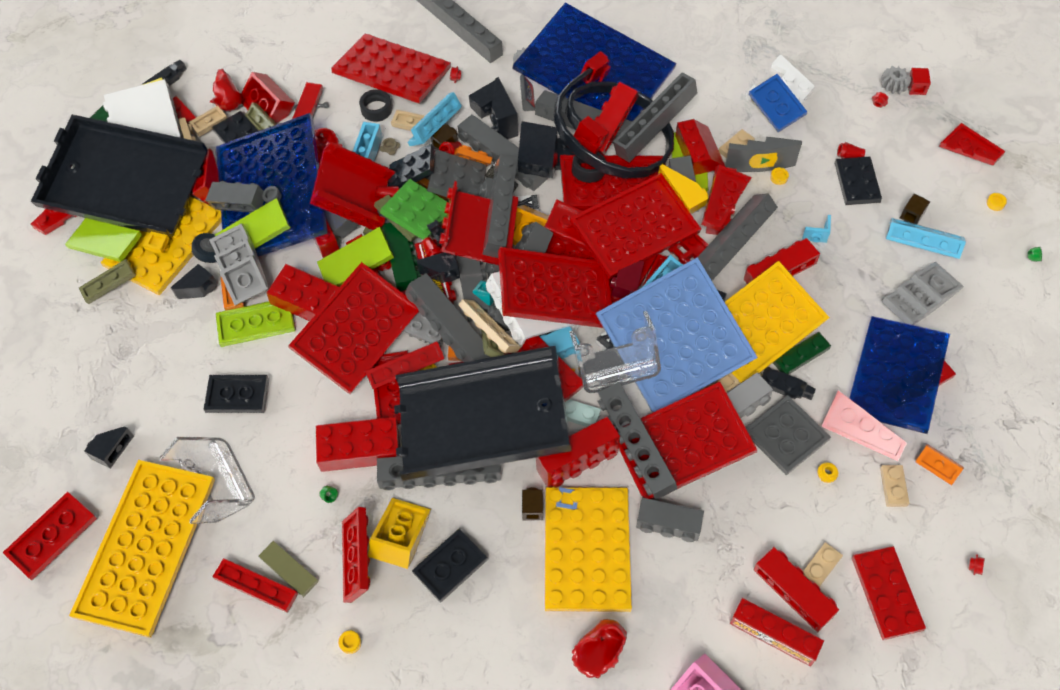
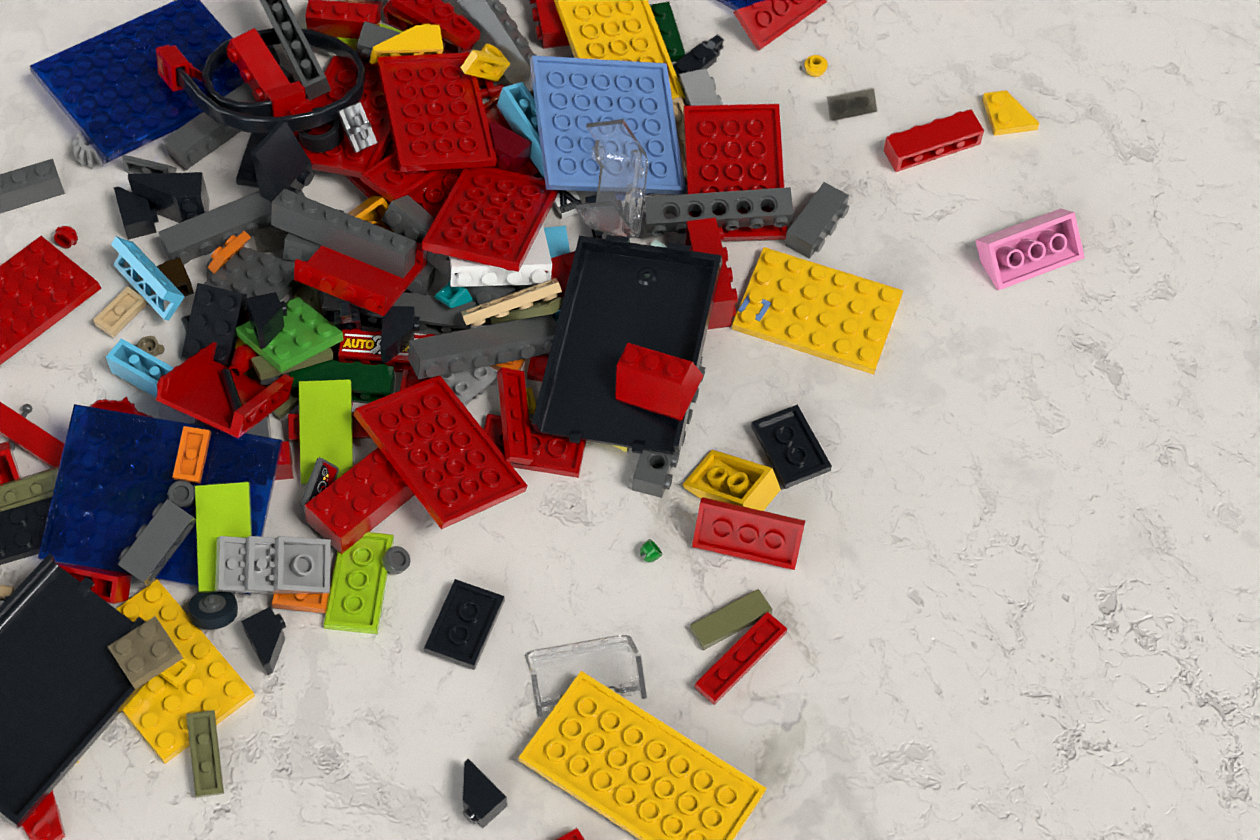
camera: 75 degrees left, 0 degrees up
(103, 239) = (127, 746): lime tile -> none
(155, 219) = (145, 652): none -> dark tan plate
(274, 336) = (396, 560): none -> dark grey tile
(294, 186) = (192, 454): none -> orange plate
(319, 268) = (322, 476): none -> slope
(349, 642) = (844, 575): yellow tile -> none
(356, 191) = (231, 389): none -> black bar
(356, 443) = (599, 498): red brick -> none
(372, 96) = (61, 330): black tyre -> none
(414, 187) = (266, 317): none -> black slope
(430, 247) = (365, 333): red cone -> none
(448, 440) = (656, 381): none -> red slope
(449, 147) = (198, 274): red cone -> none
(532, 504) = (749, 342): dark brown brick -> none
(591, 180) = (357, 127): none -> flat silver hips
(595, 655) = (938, 328): red piece -> none
(695, 244) = (487, 63): none -> yellow plate
(777, 632) = (972, 173): red brick -> none
(787, 435) = (759, 78): dark grey plate -> none
(800, 512) = (852, 104): none -> clear smoke plate
(822, 564) = (911, 108): tan plate -> none
(860, 646) = (1007, 114): none -> yellow wing
(888, 593) = (960, 69): red plate -> none
(894, 486) = (851, 17): tan plate -> none

